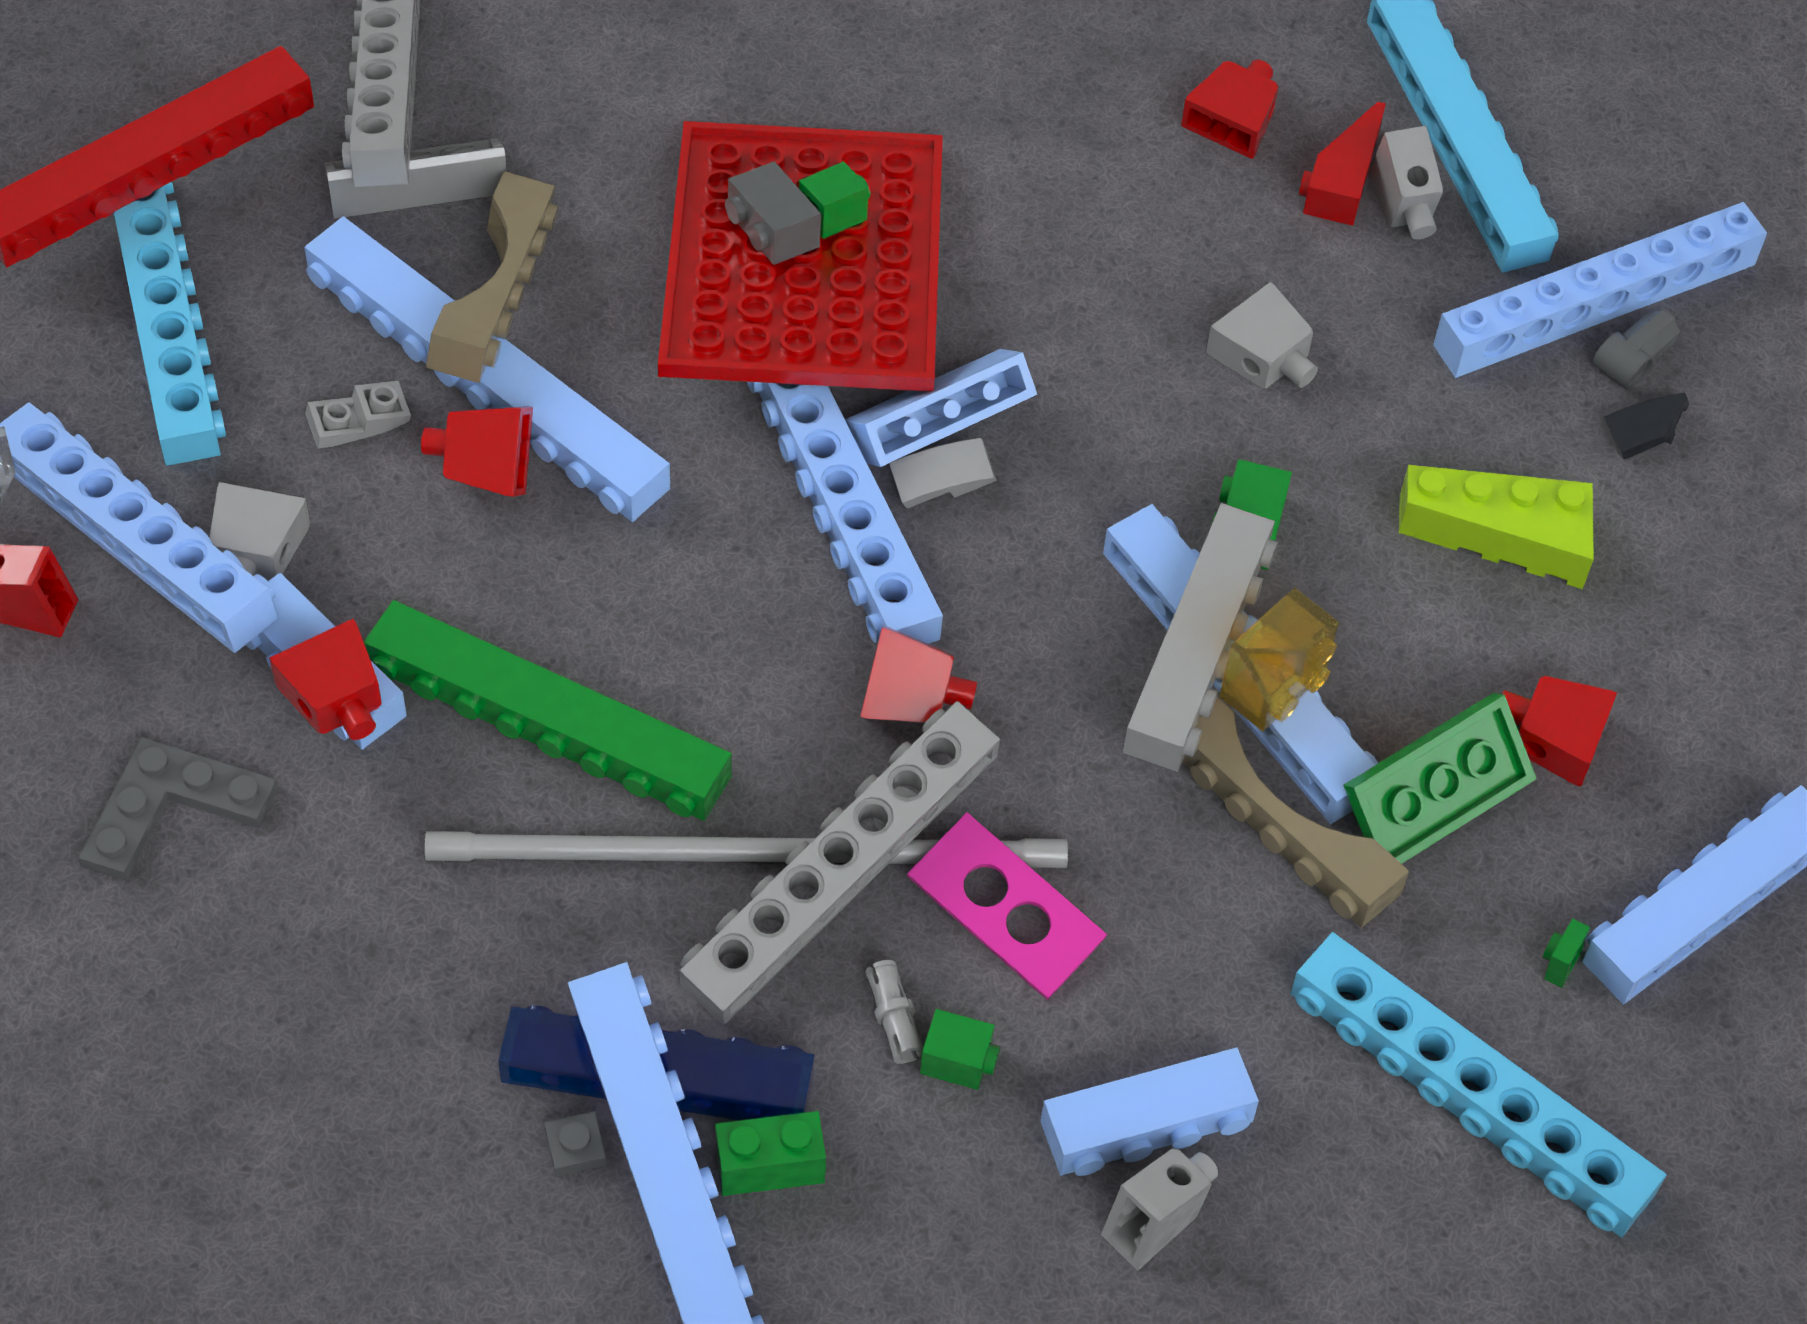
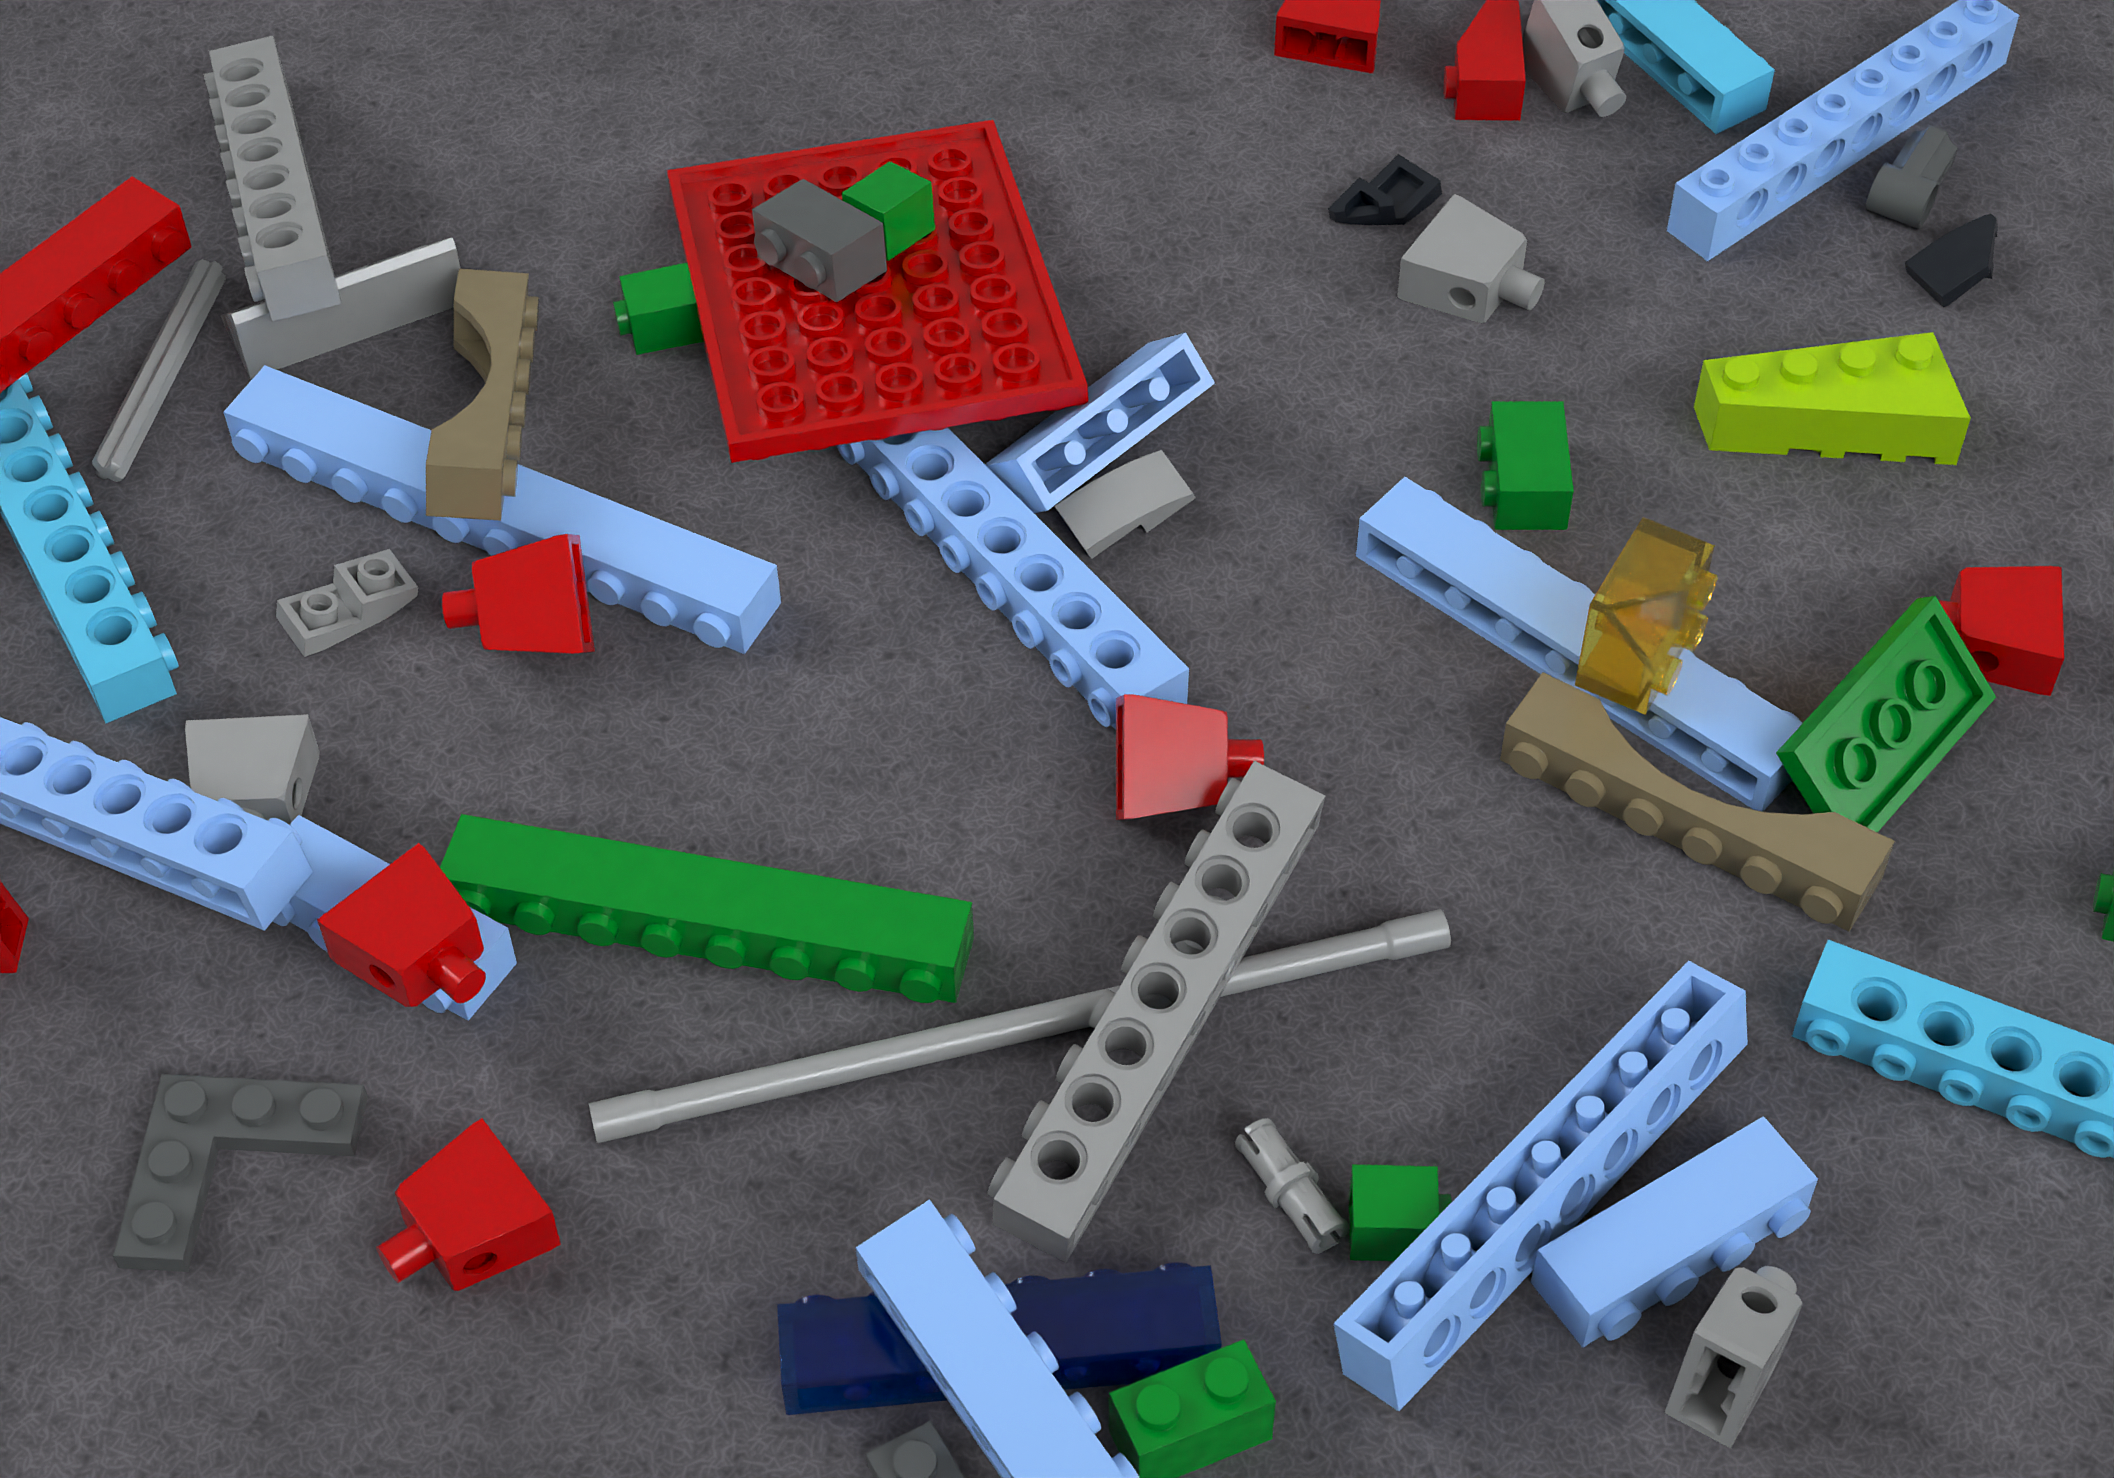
camera: 10 degrees left, 5 degrees down
(269, 197) = (158, 371): none -> light grey axle
(323, 889) = (469, 1214): none -> red torso
(643, 234) = (658, 309): none -> green brick
(1040, 964) = (1461, 1077): dark pink piece -> none
(1068, 1054) = (1540, 1185): none -> light blue brick
(1199, 638) = (1529, 620): light grey brick -> none
(1227, 269) = (1390, 198): none -> black slope

